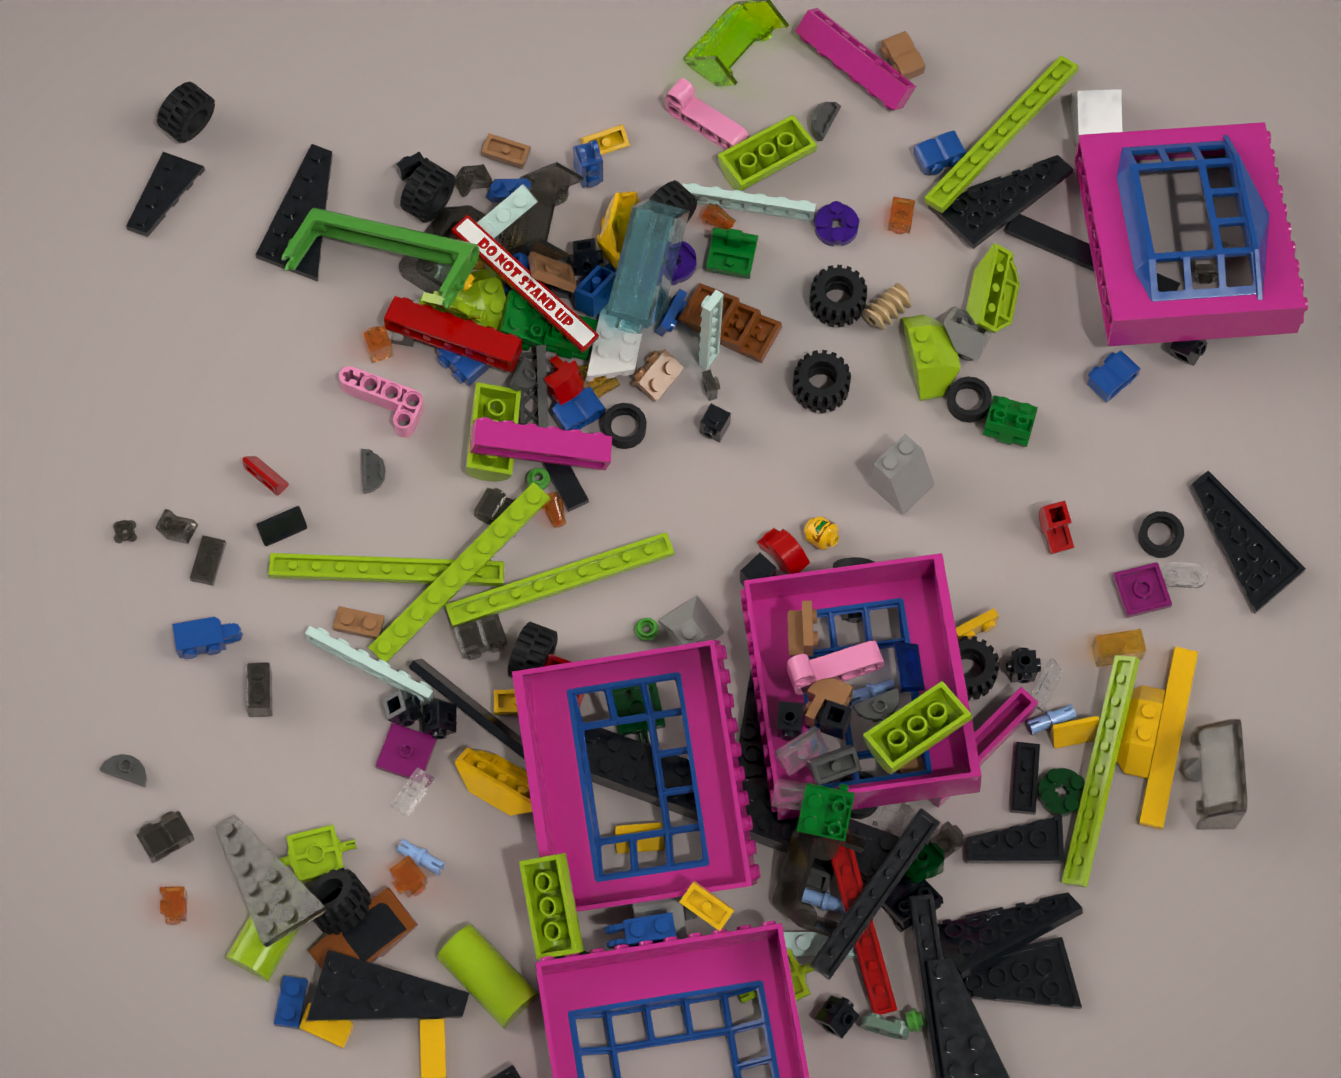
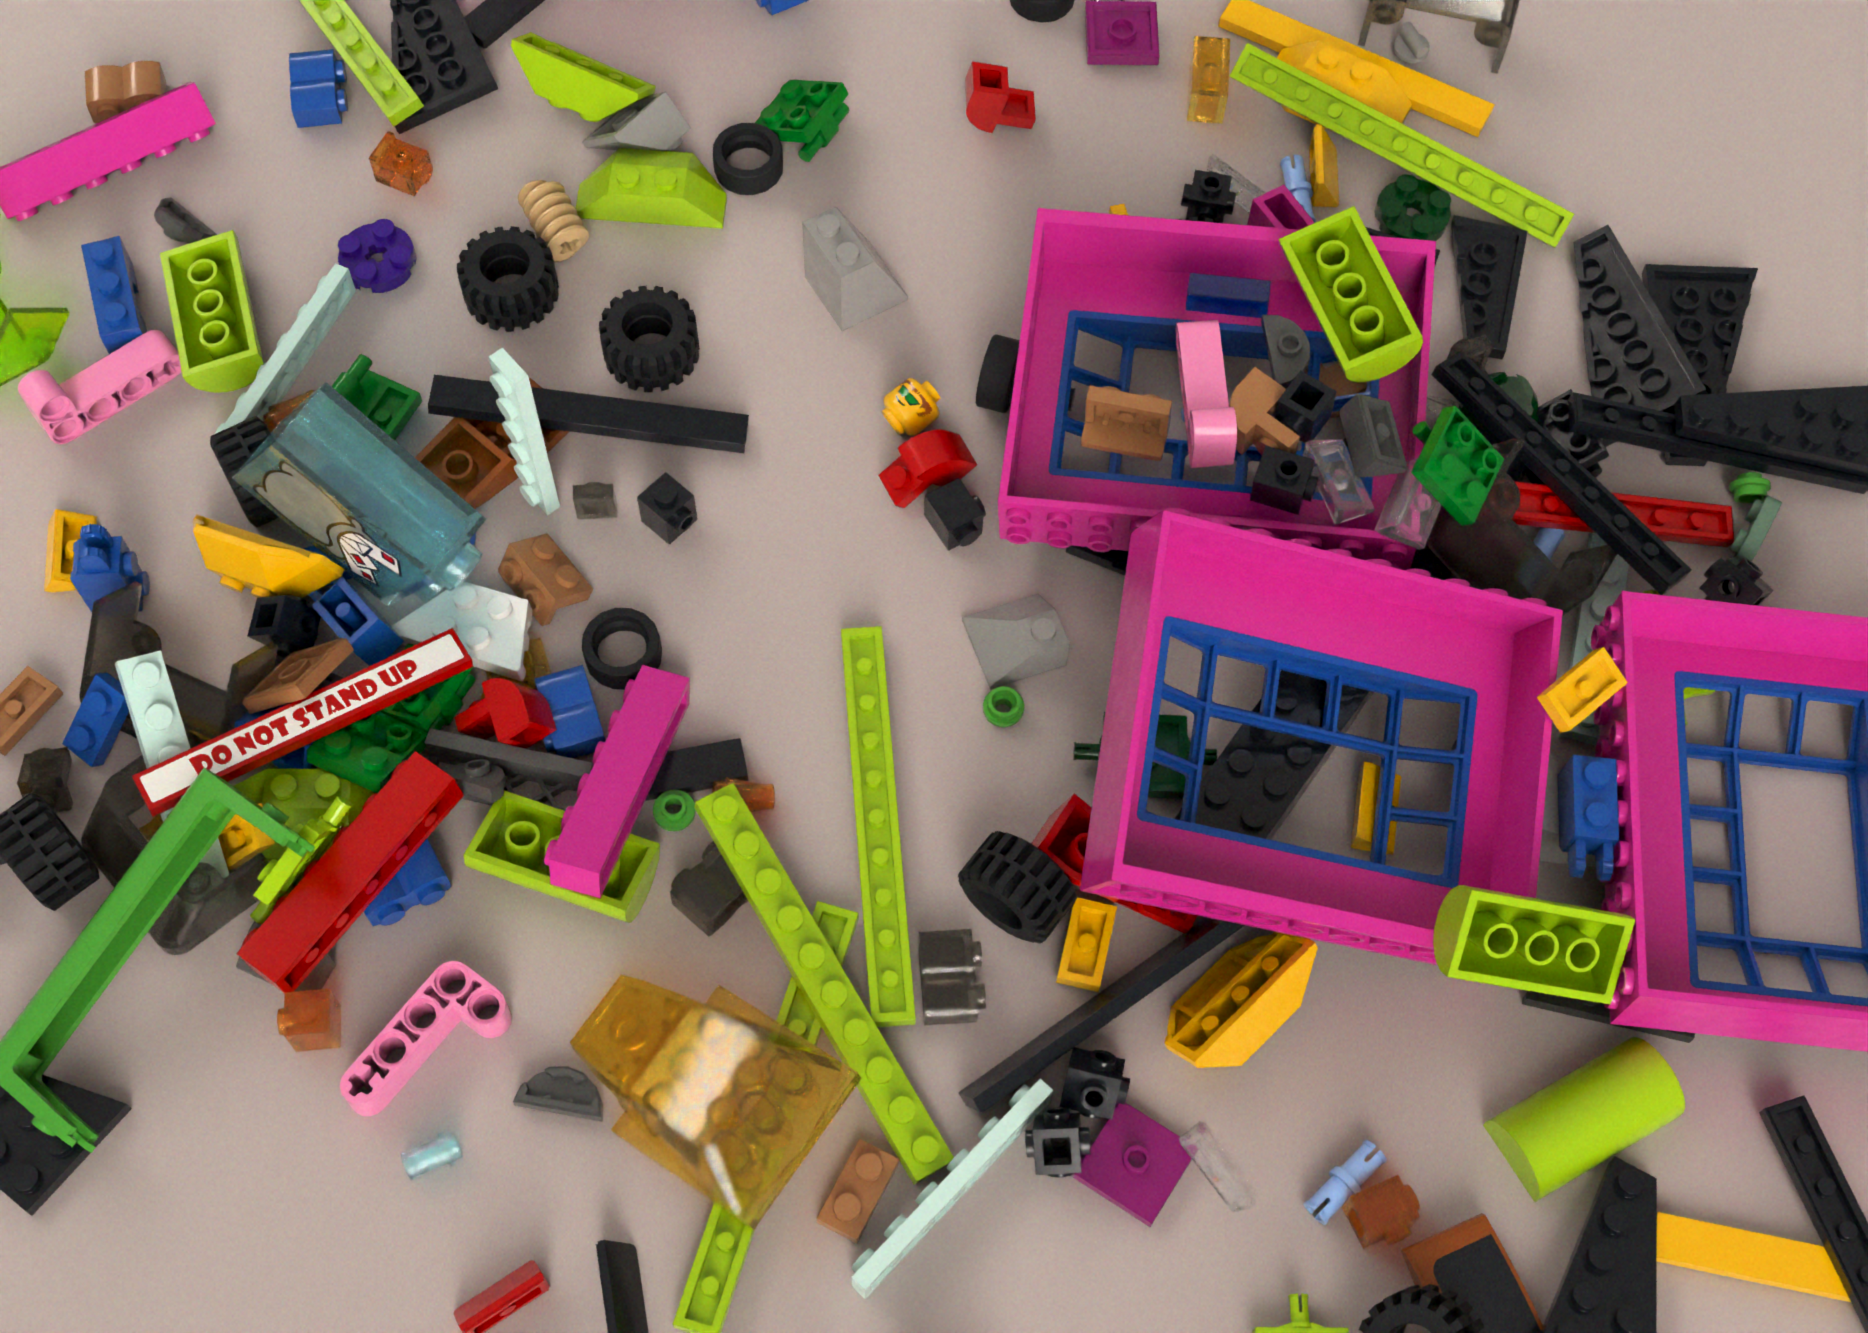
camera: 75 degrees left, 5 degrees down
(330, 425) = (432, 1155): none -> clear light blue pin
(390, 537) = (712, 1089): none -> clear yellow wedge
(761, 365) = (597, 415): none -> black tile
(775, 94) = (113, 292): none -> blue arch

